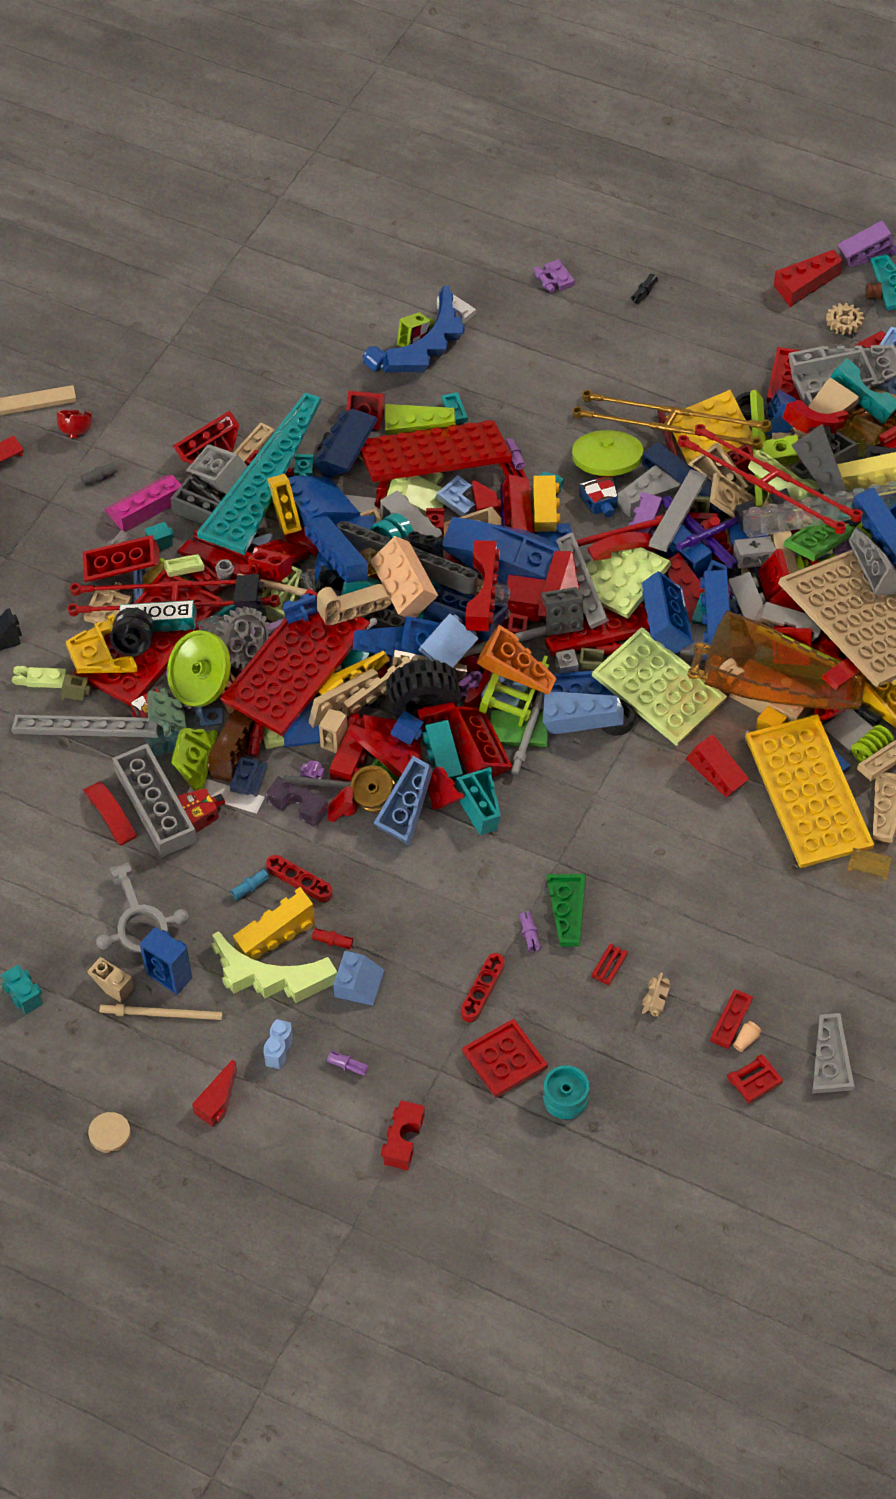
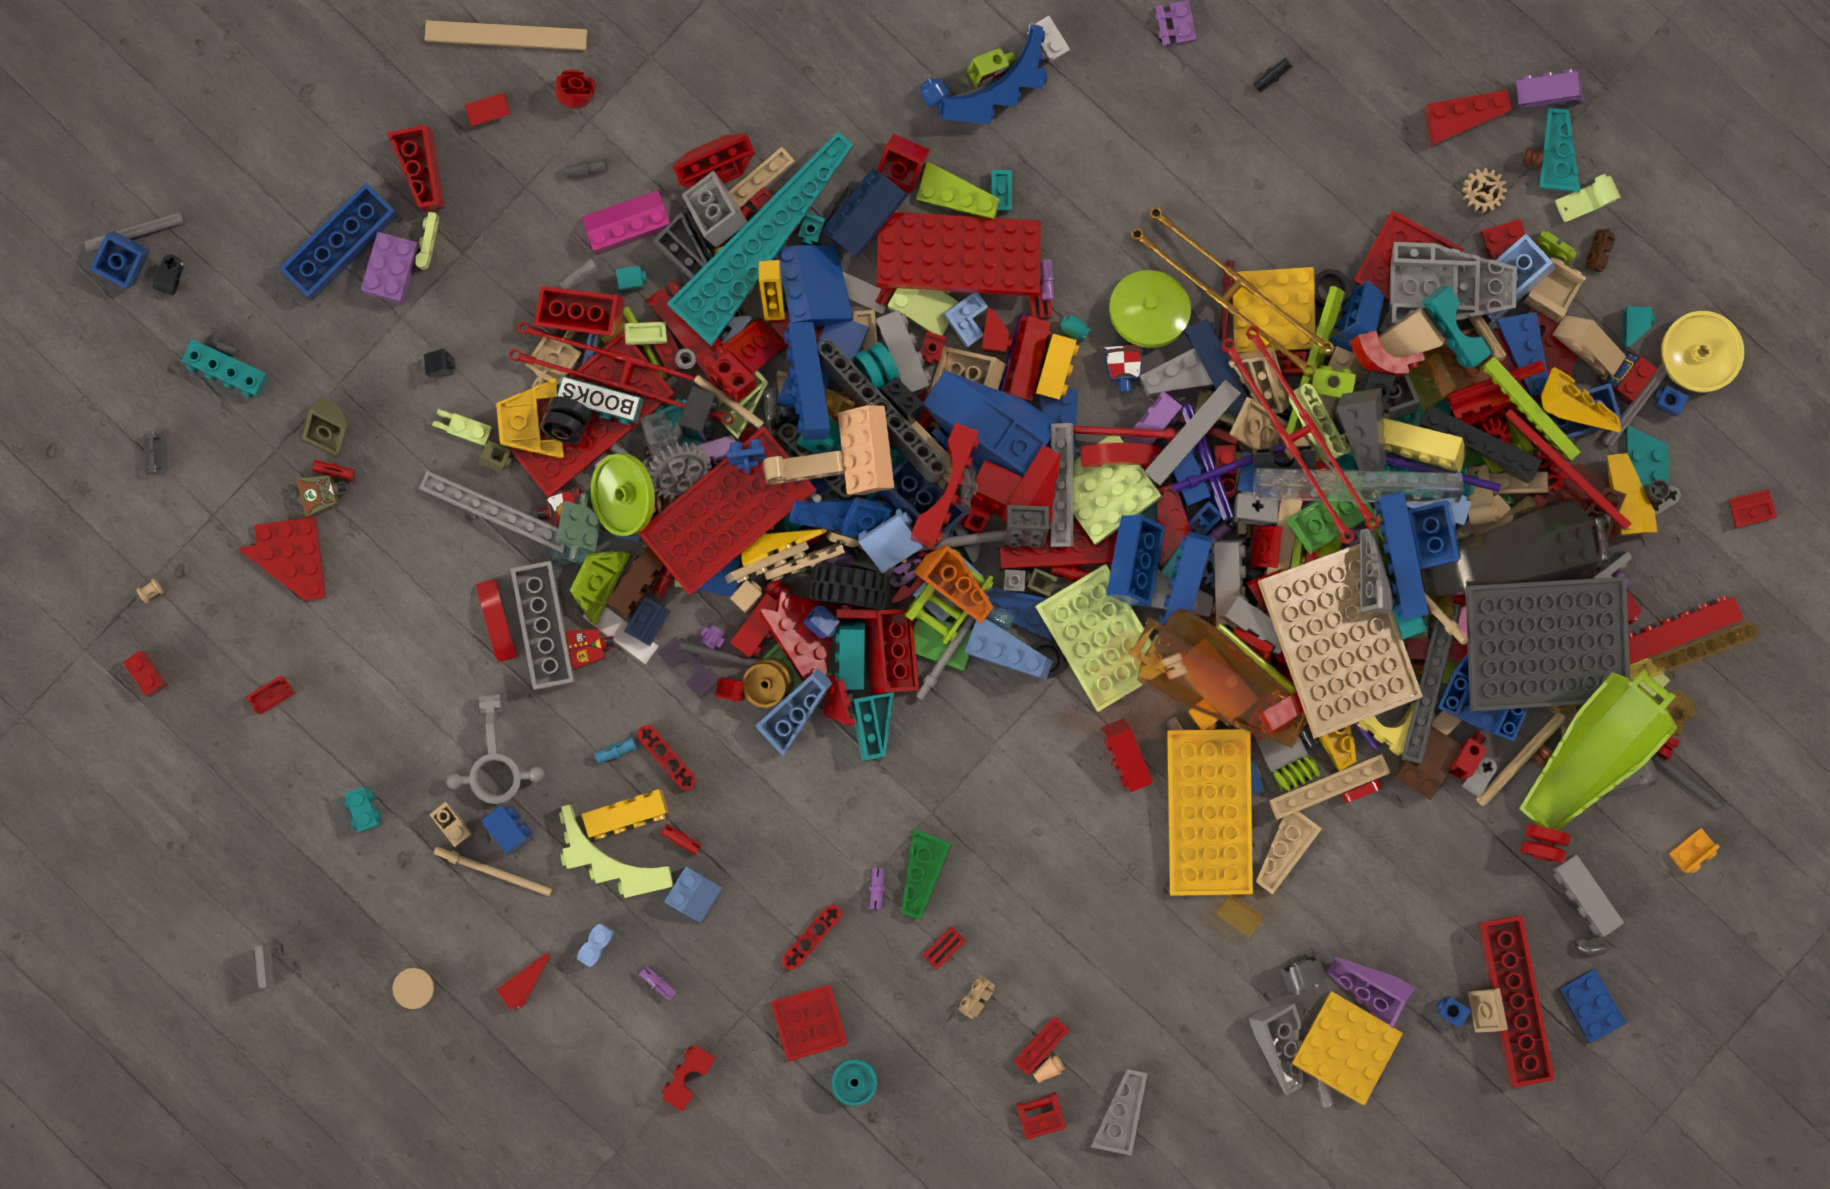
camera: 15 degrees right, 30 degrees up
(568, 687) = (1002, 617): none -> clear light blue cone

